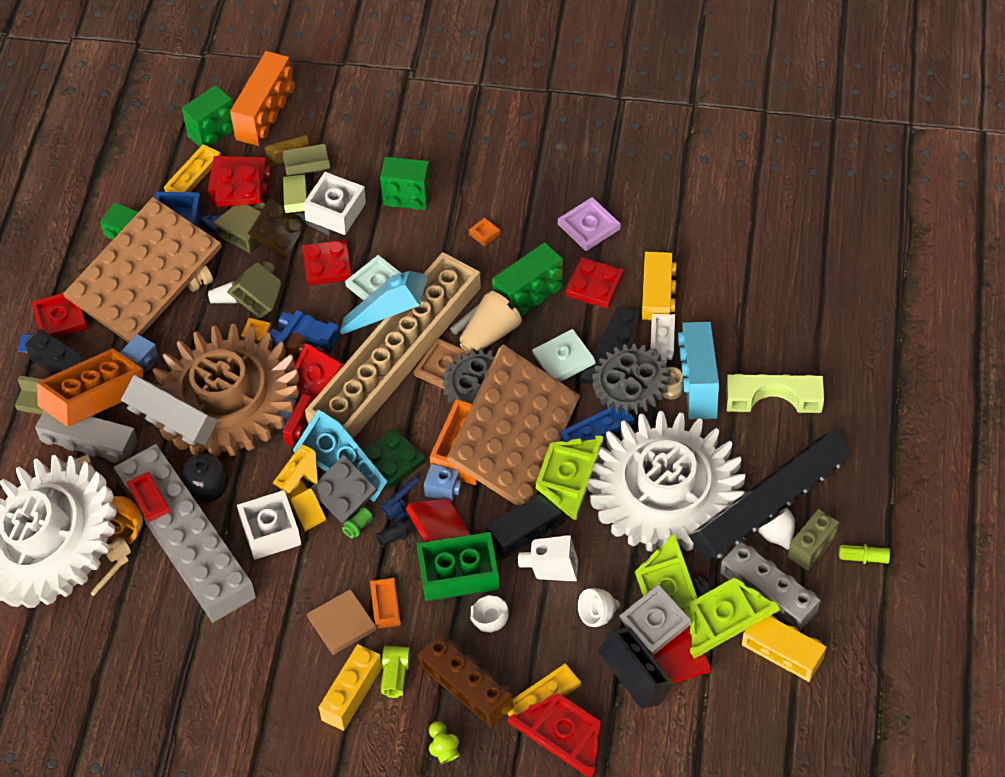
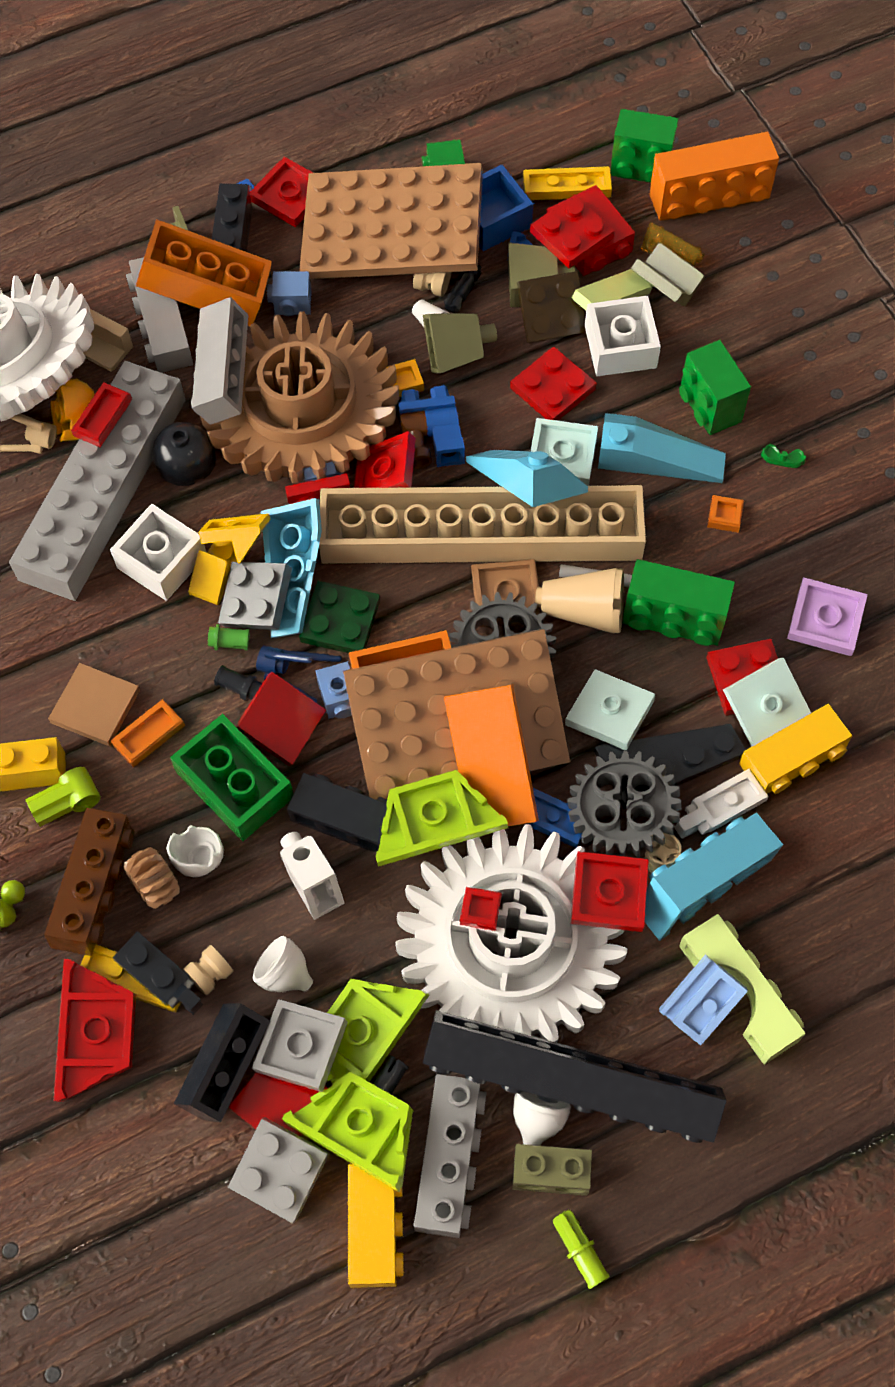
camera: 55 degrees right, 10 degrees up
(218, 270) = (461, 290): none -> black axle
(413, 241) = (646, 448): none -> medium azure wedge
(476, 181) = (773, 456): none -> green piece
(490, 644) = (151, 877): none -> medium nougat gear
(550, 416) = (493, 750): none -> orange tile
(554, 675) = (157, 973): none -> black hinge
(570, 648) = (211, 968): none -> tan wheel
(621, 280) = (767, 701): none -> light aqua plate
(648, 473) = (480, 908): none -> red tile
(679, 413) = (609, 891): none -> red plate
(719, 676) = (278, 1170): none -> light grey plate
(769, 412) = (703, 999): none -> light blue plate

